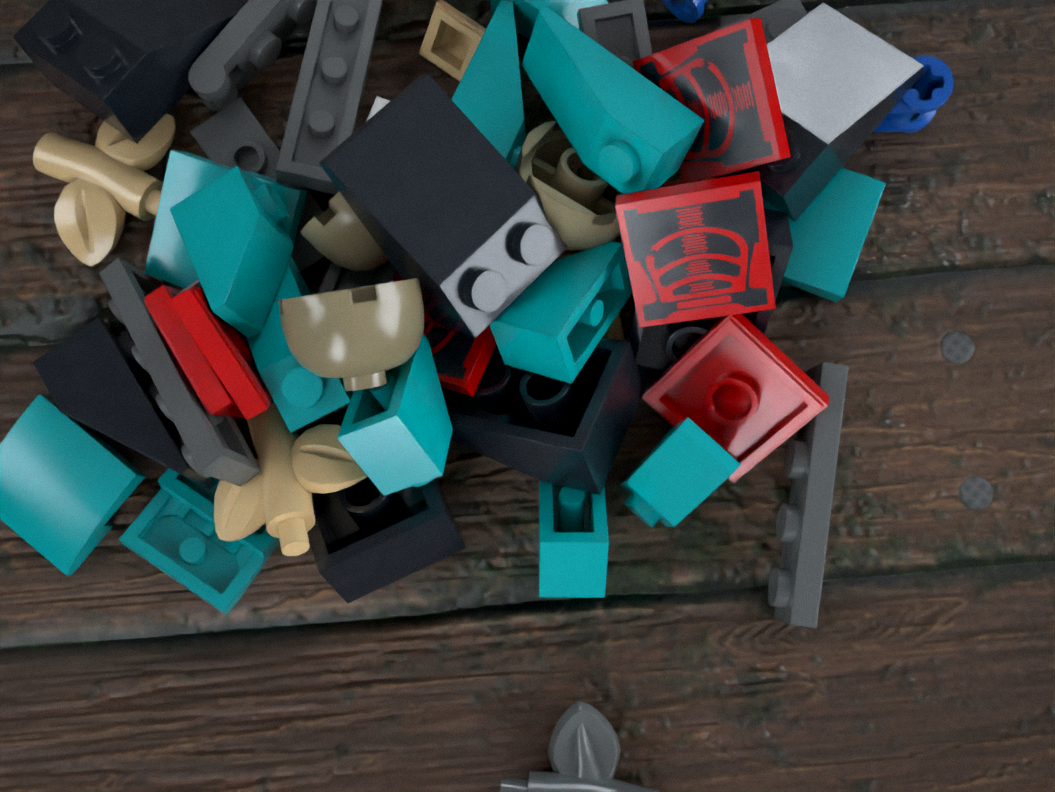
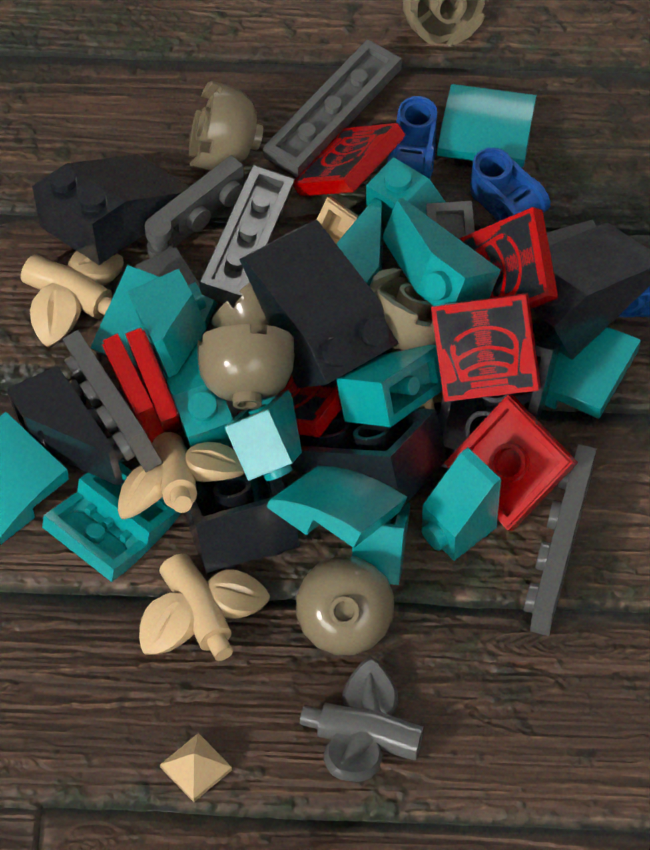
camera: 10 degrees right, 25 degrees down
(347, 650) = (198, 608): none -> tan plant
(513, 522) = (340, 501): none -> teal slope
(538, 644) = (345, 605): none -> dark tan cylinder

